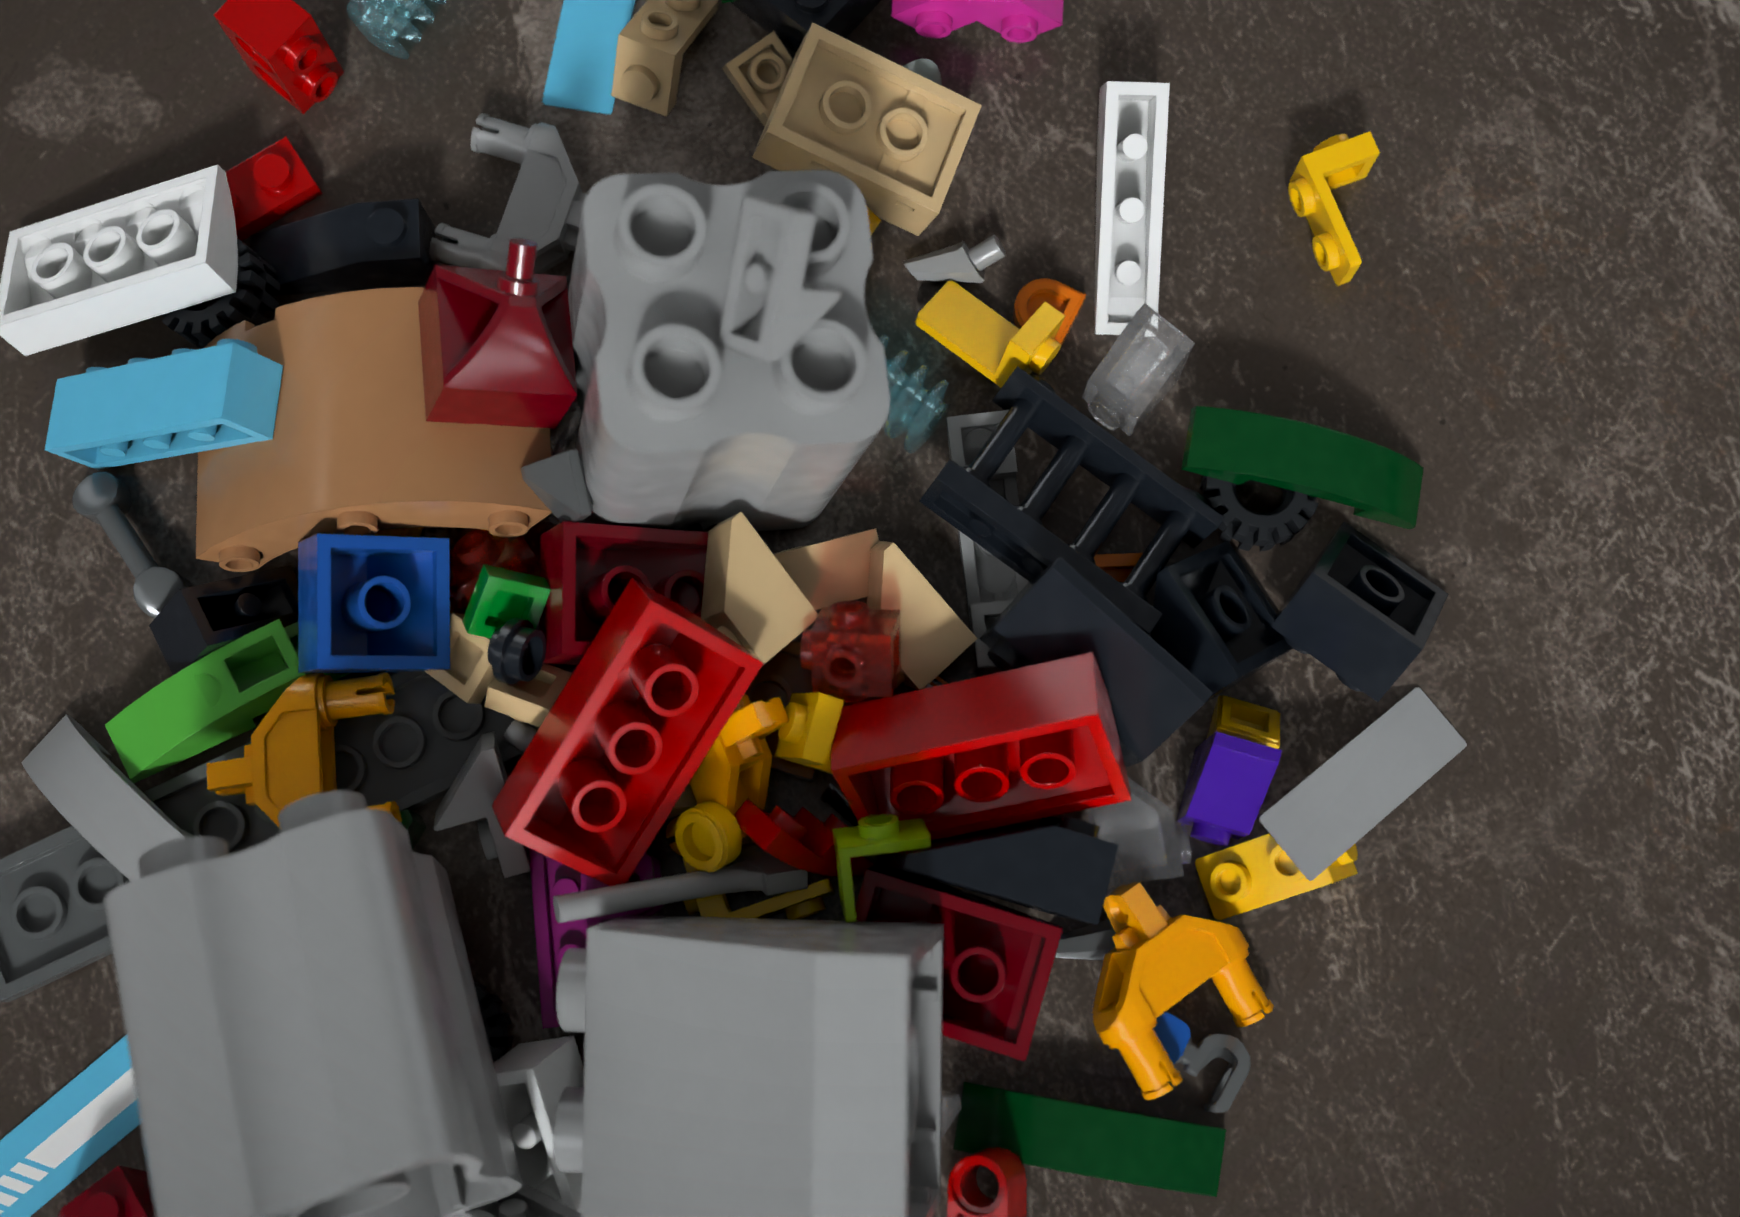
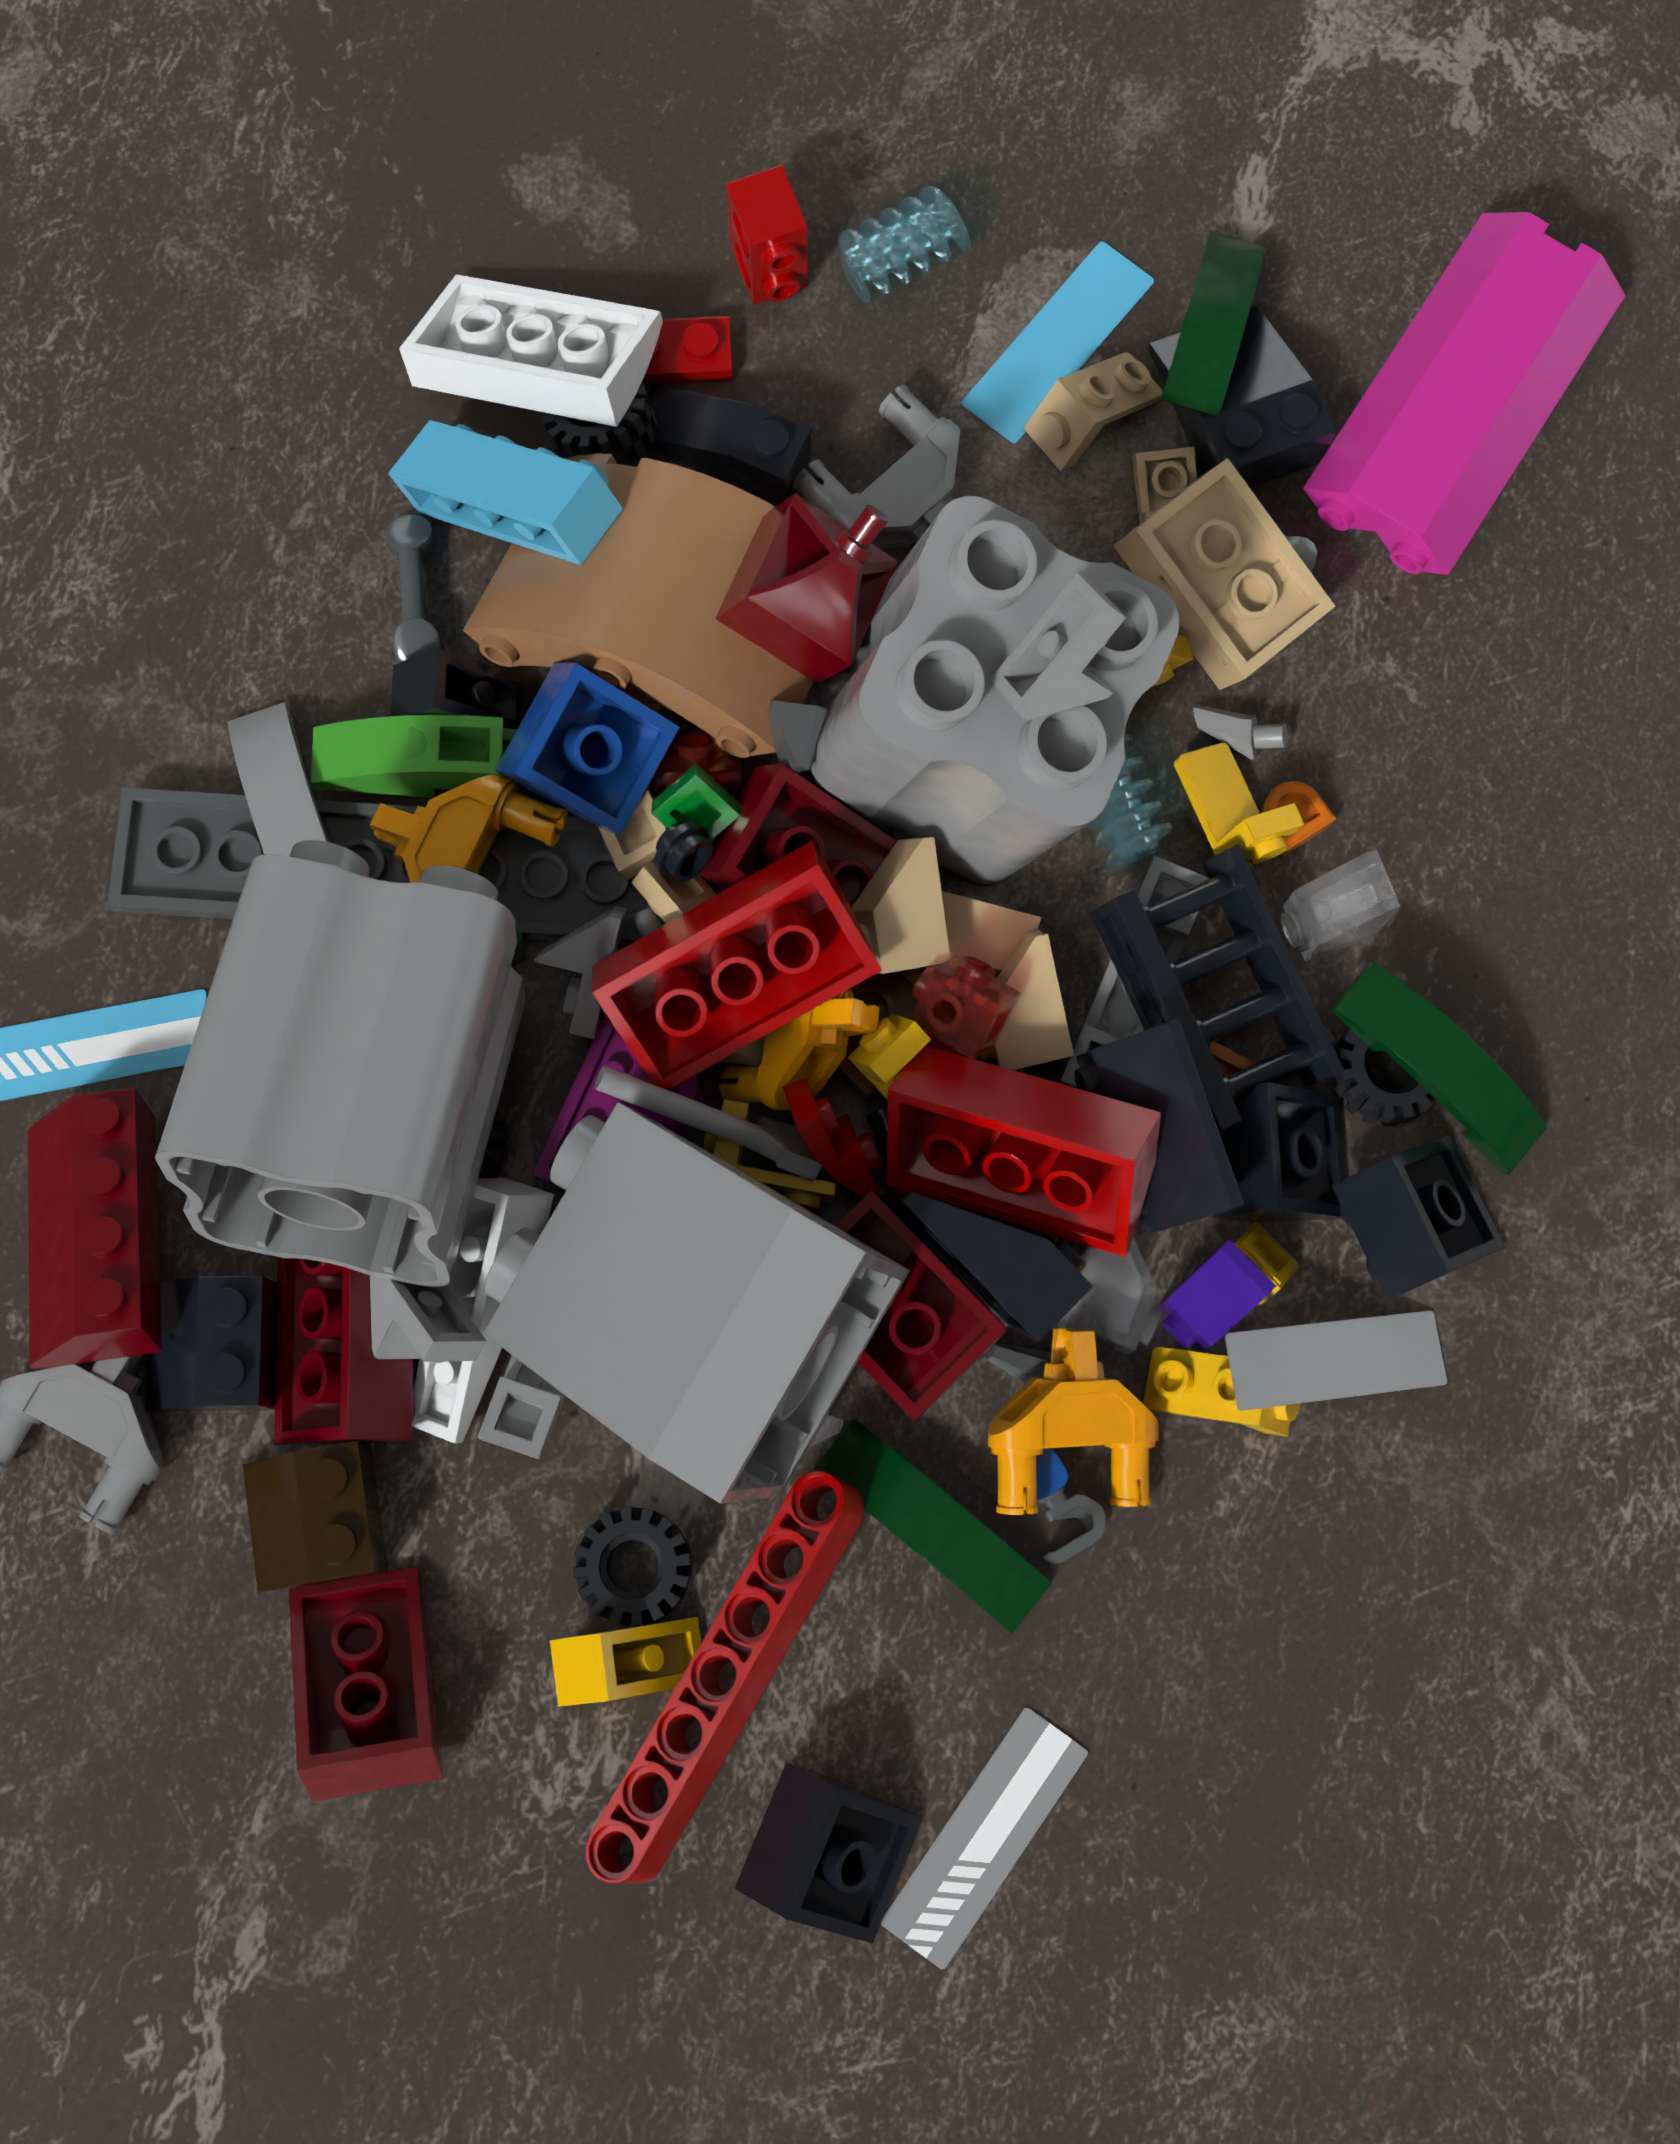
camera: 25 degrees right, 0 degrees up
(708, 836) = (755, 1091): yellow tile -> none
(873, 836) = (893, 1164): lime bracket -> none
(1129, 200) = (1419, 758): white slope -> none
(1330, 166) = (1613, 823): yellow bracket -> none

